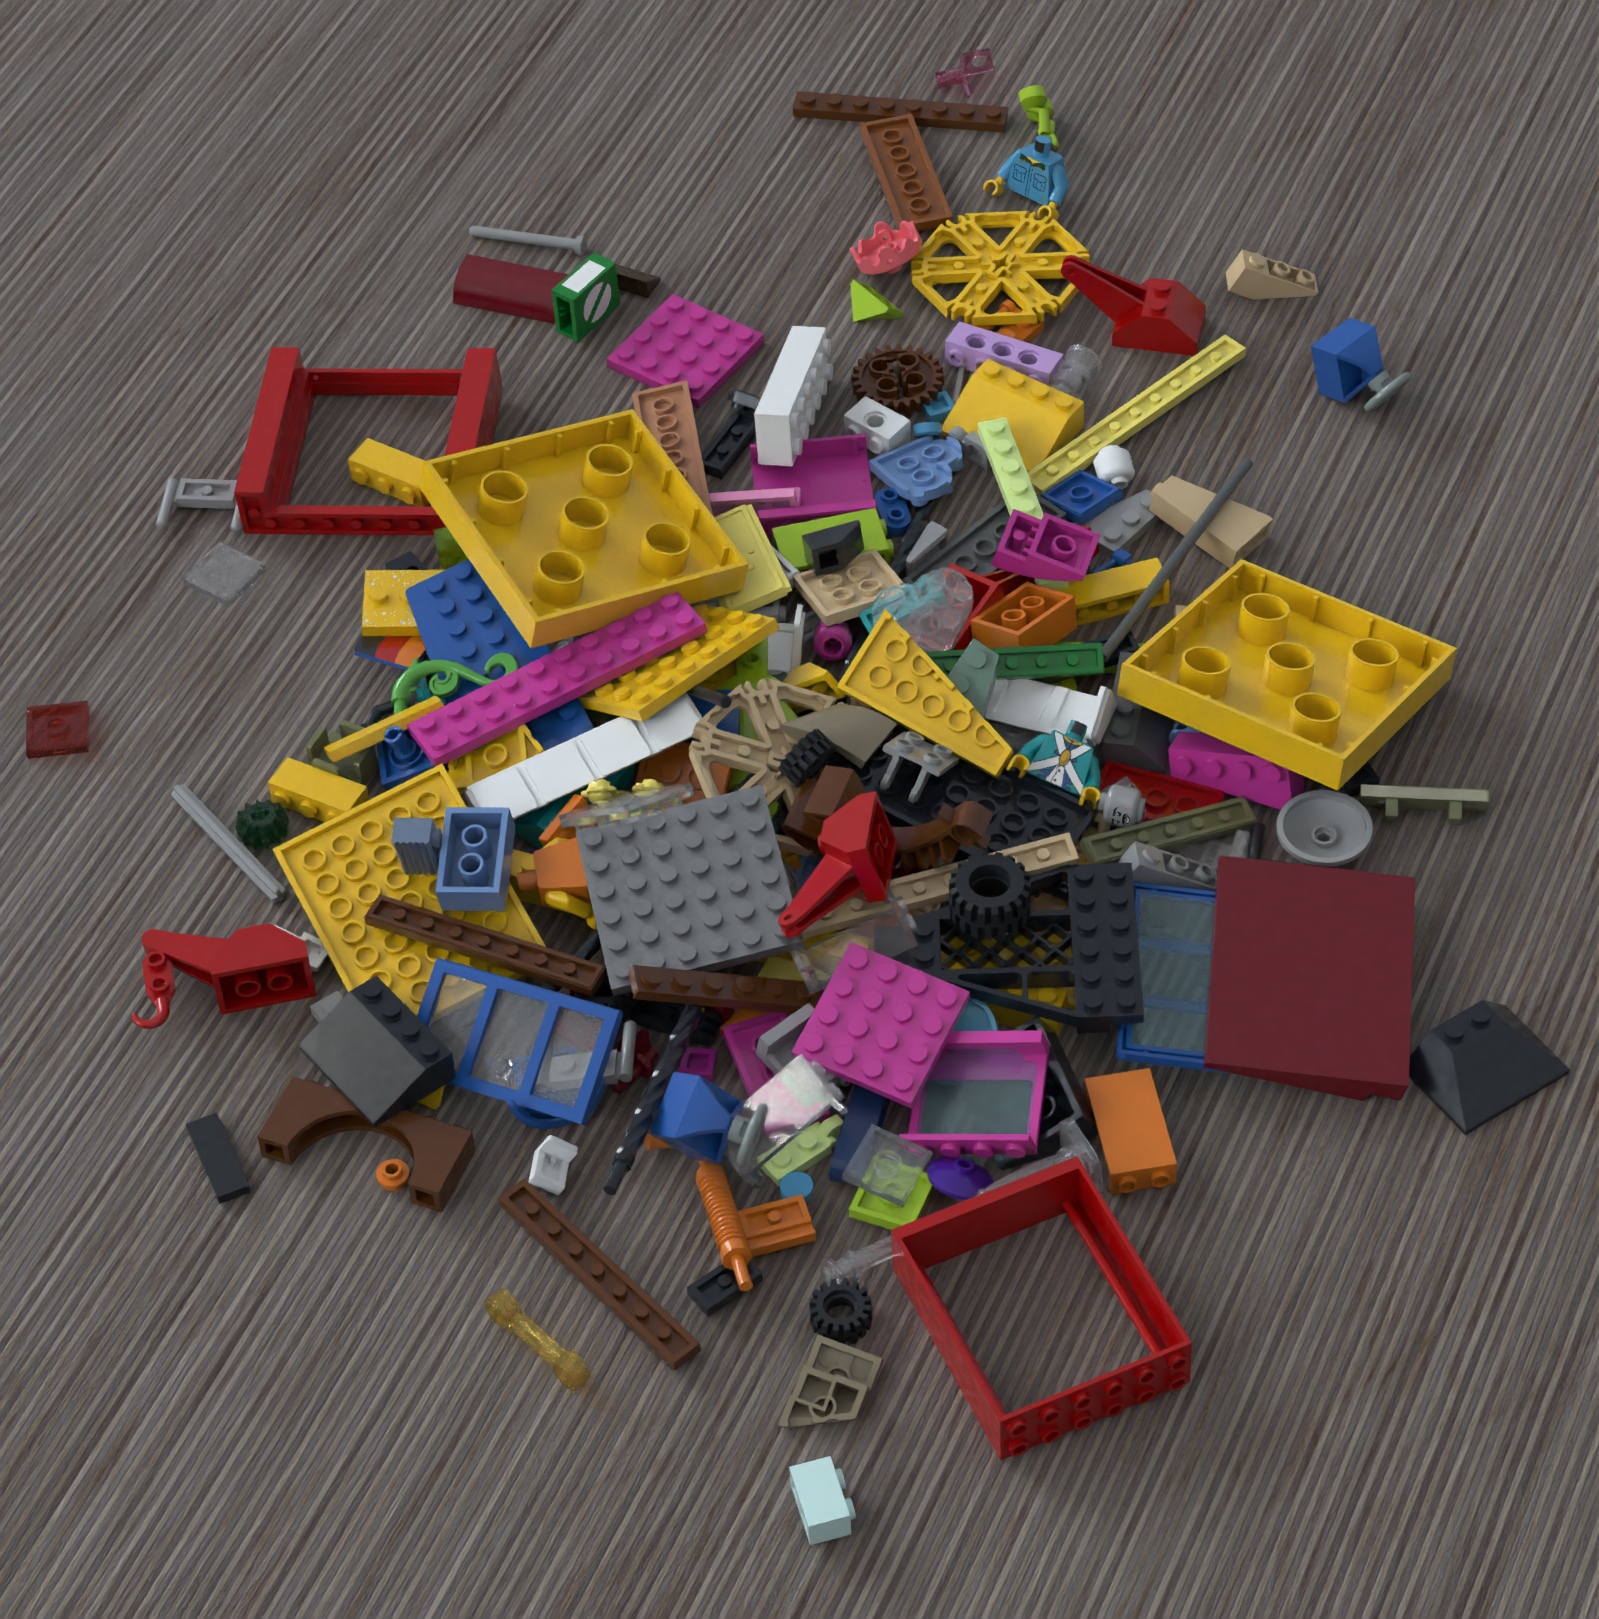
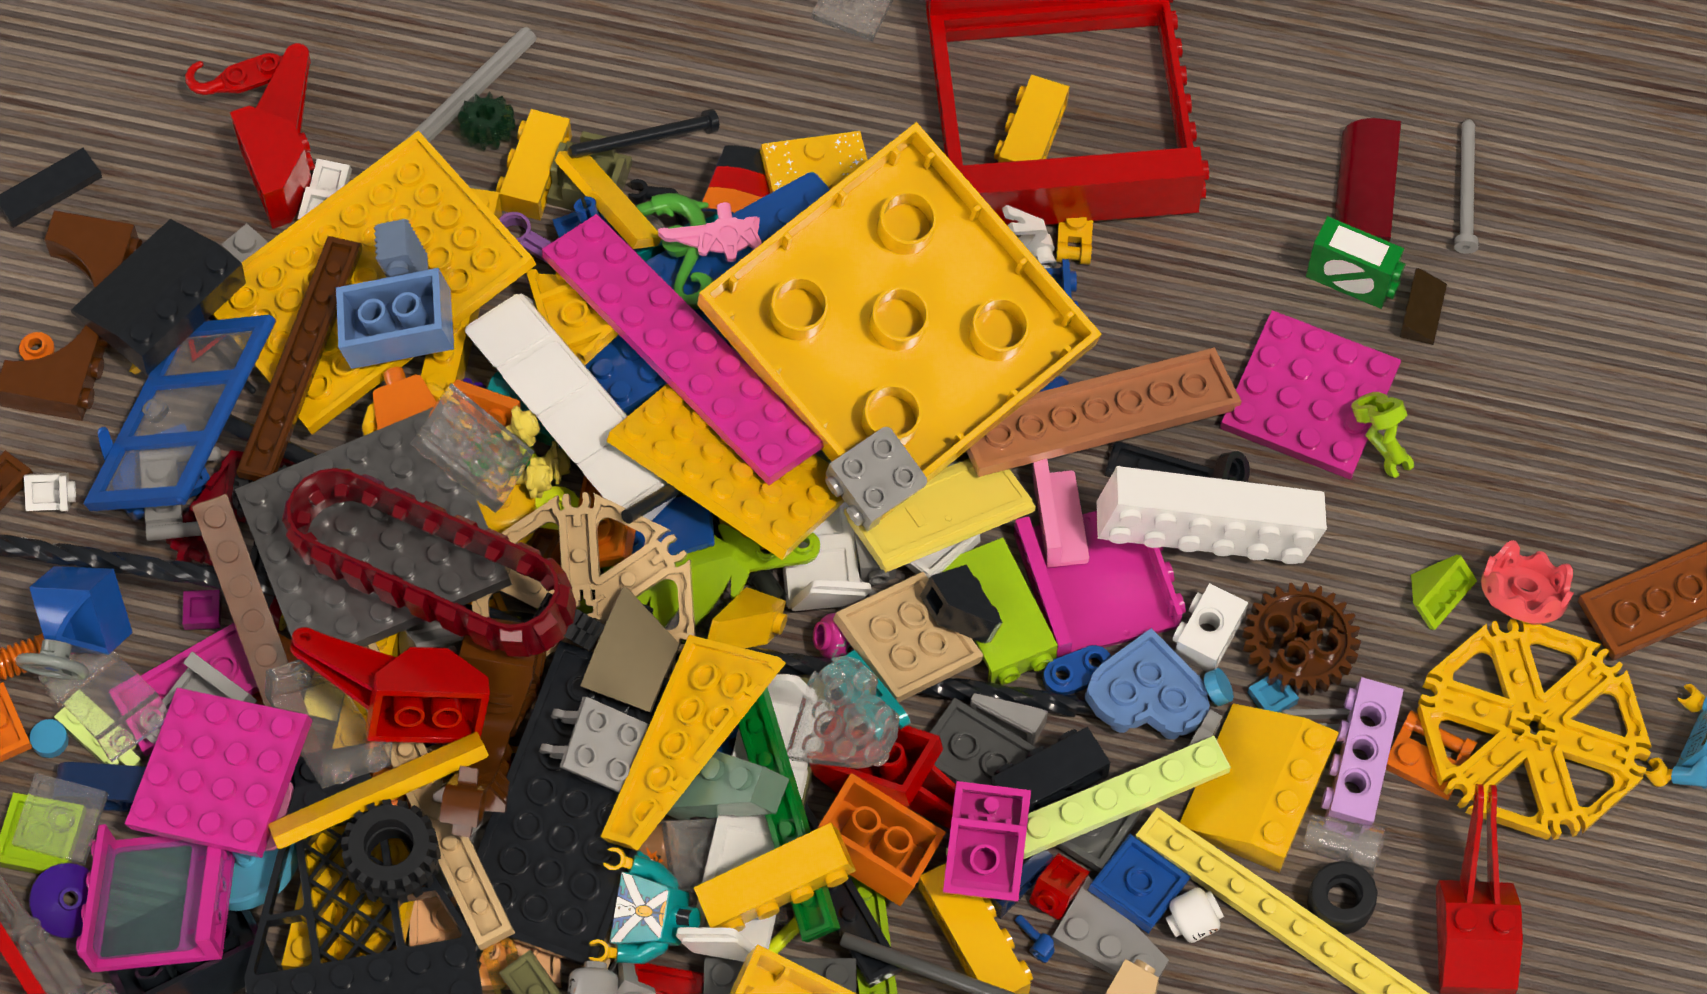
camera: 75 degrees right, 15 degrees up
(314, 678) = (708, 122): none -> black bar
(456, 645) = (723, 236): none -> bright pink piece
(722, 567) = (874, 477): none -> light grey bracket
(731, 288) = (1384, 414): none -> lime piece
(784, 728) = (343, 485): none -> dark red piece
(932, 899) = (381, 787): none -> yellow tile
(982, 517) = (1057, 770): none -> black brick
(1059, 664) = (776, 879): none -> yellow brick
(1114, 385) = (1348, 876): none -> black tyre

